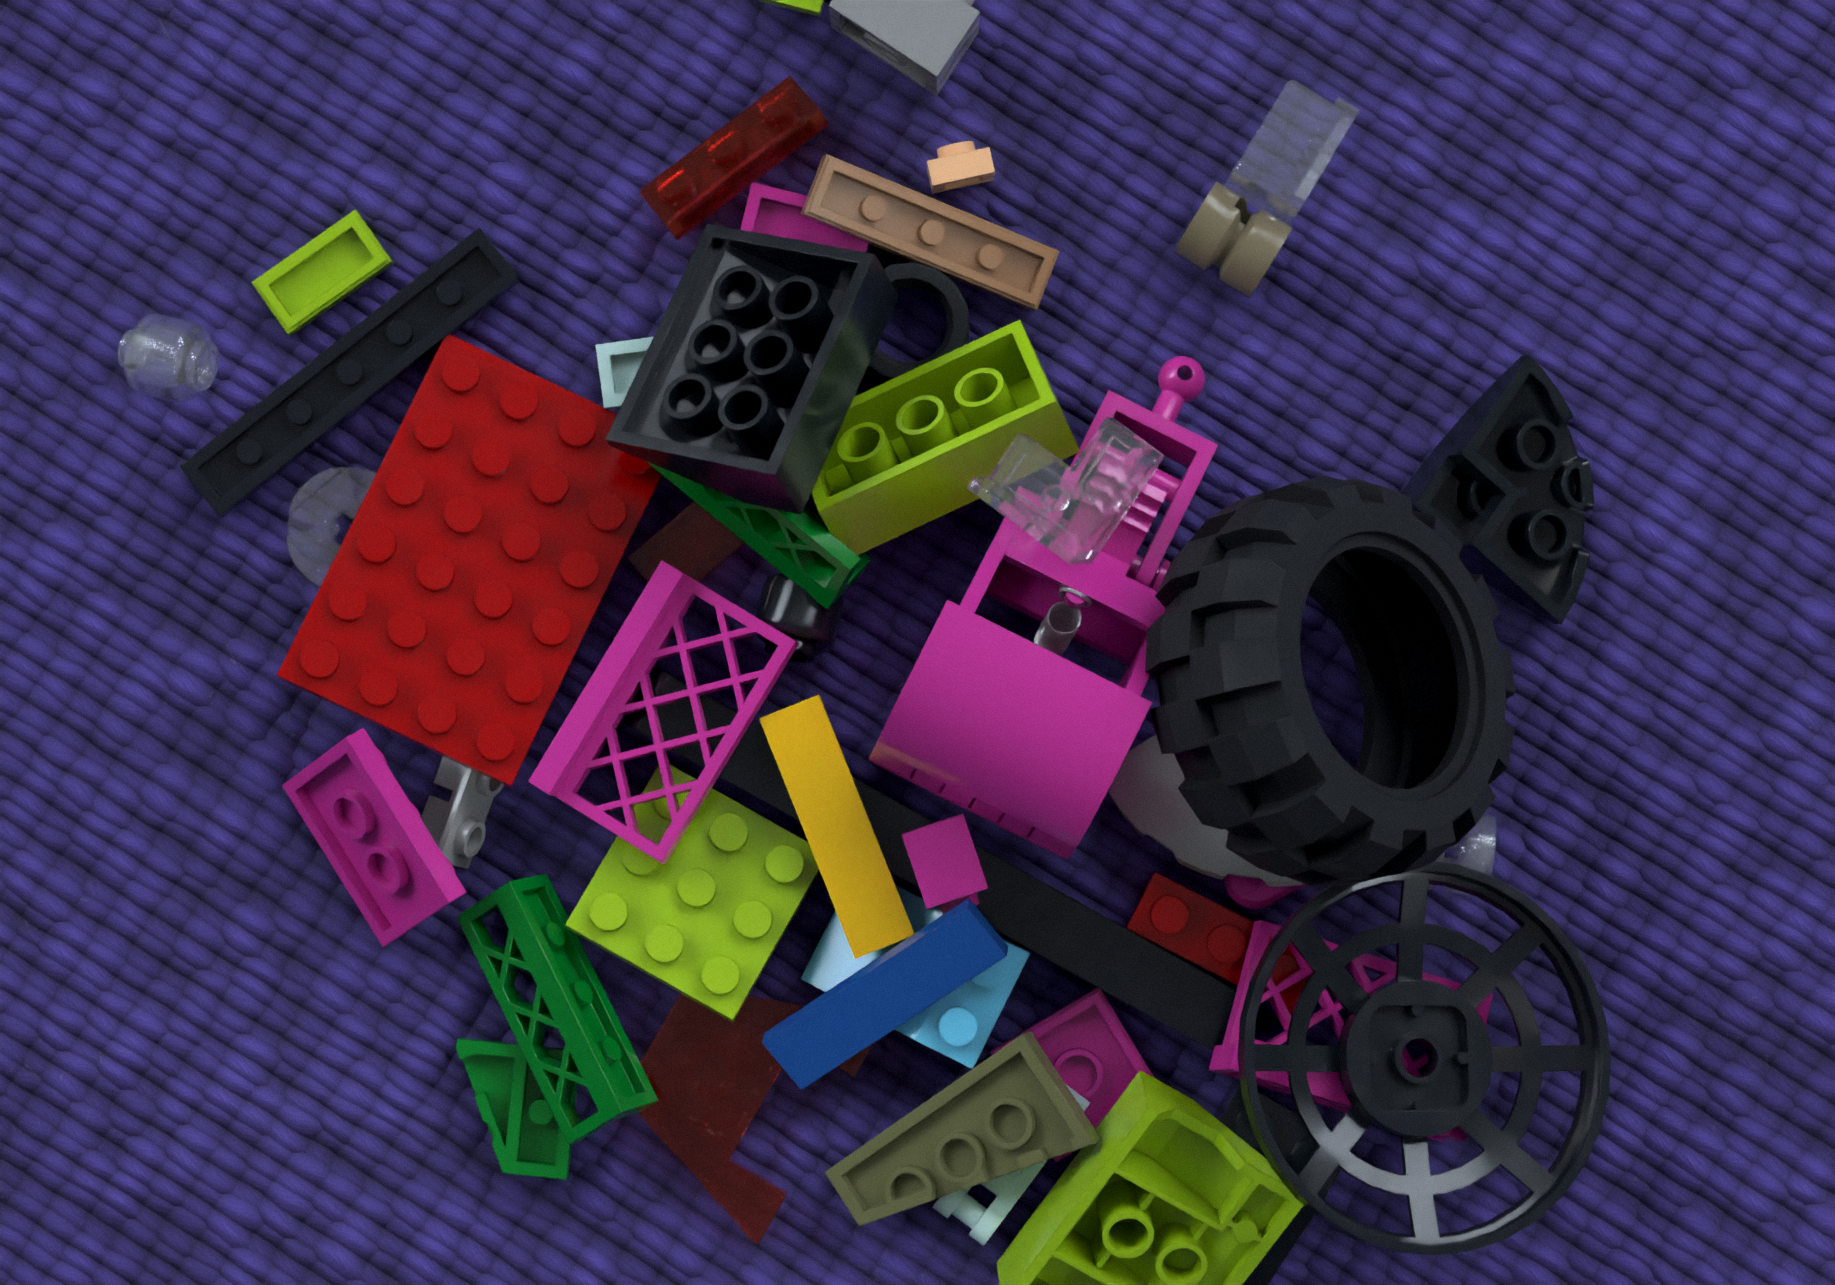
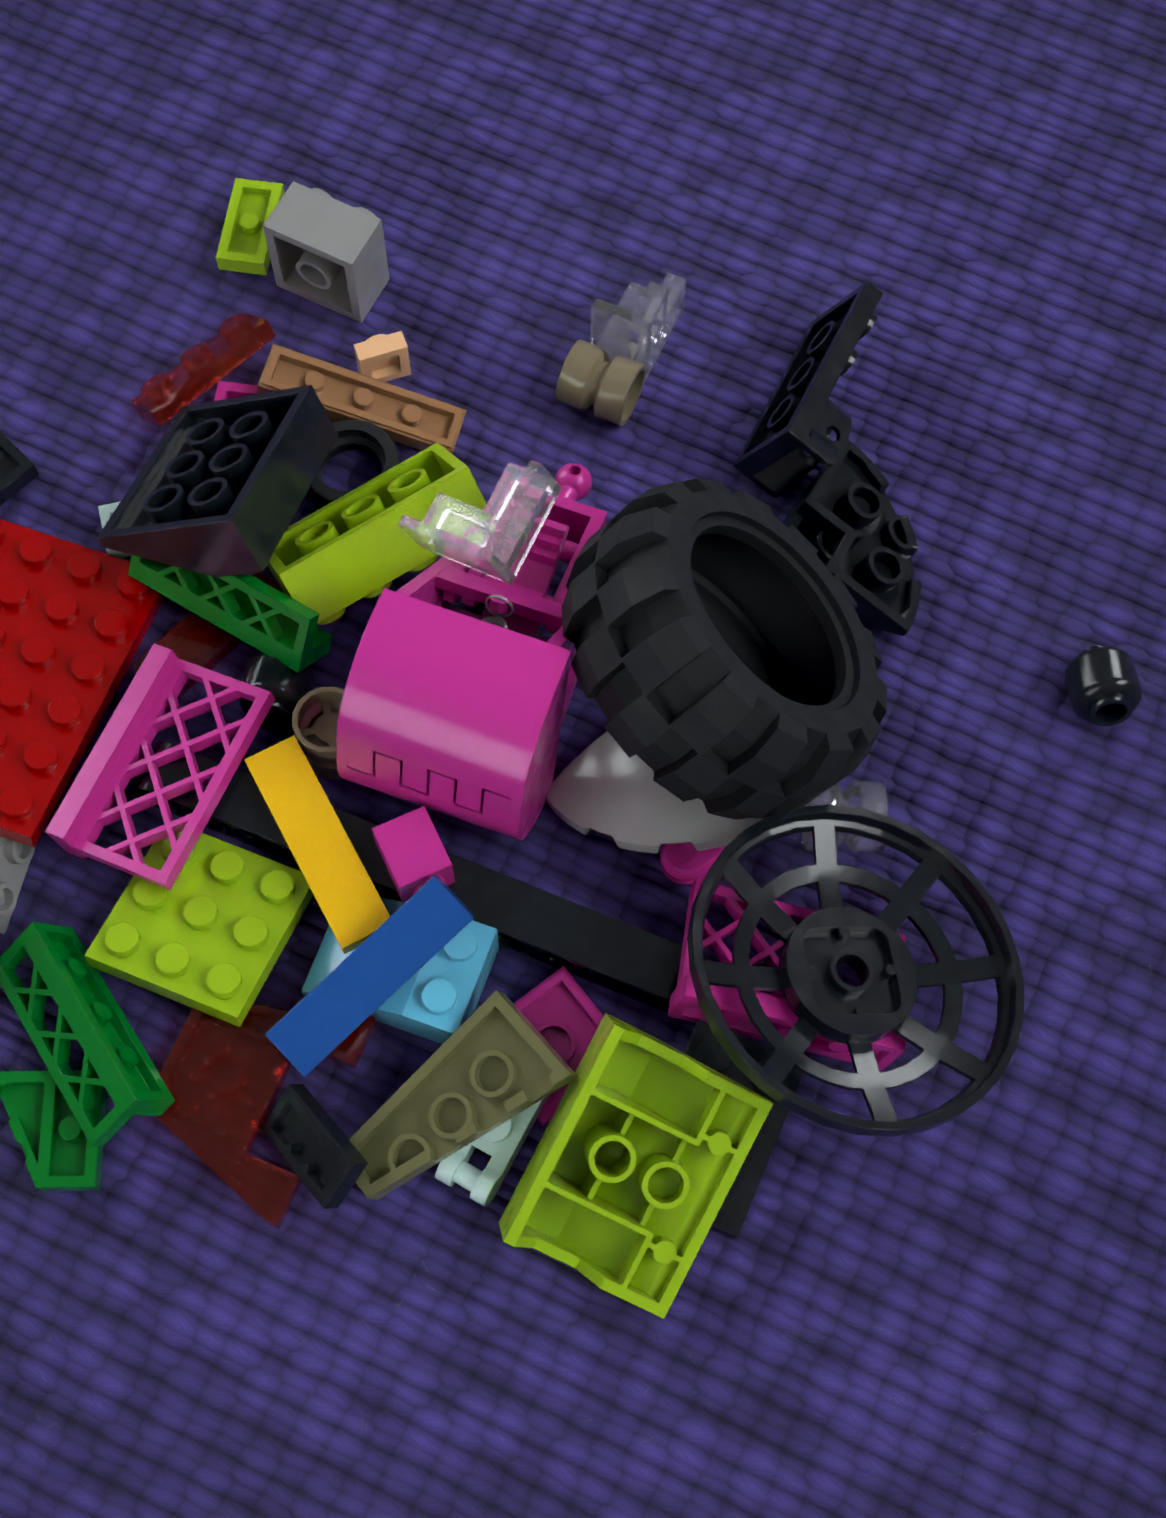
camera: 10 degrees left, 20 degrees down
(805, 1164) = (313, 1146): none -> black plate
(859, 681) = (316, 729): none -> dark tan wheel
(1203, 933) = (650, 907): red plate -> none
(1480, 303) = (800, 408): none -> black plate
(1781, 719) = (1103, 685): none -> black head

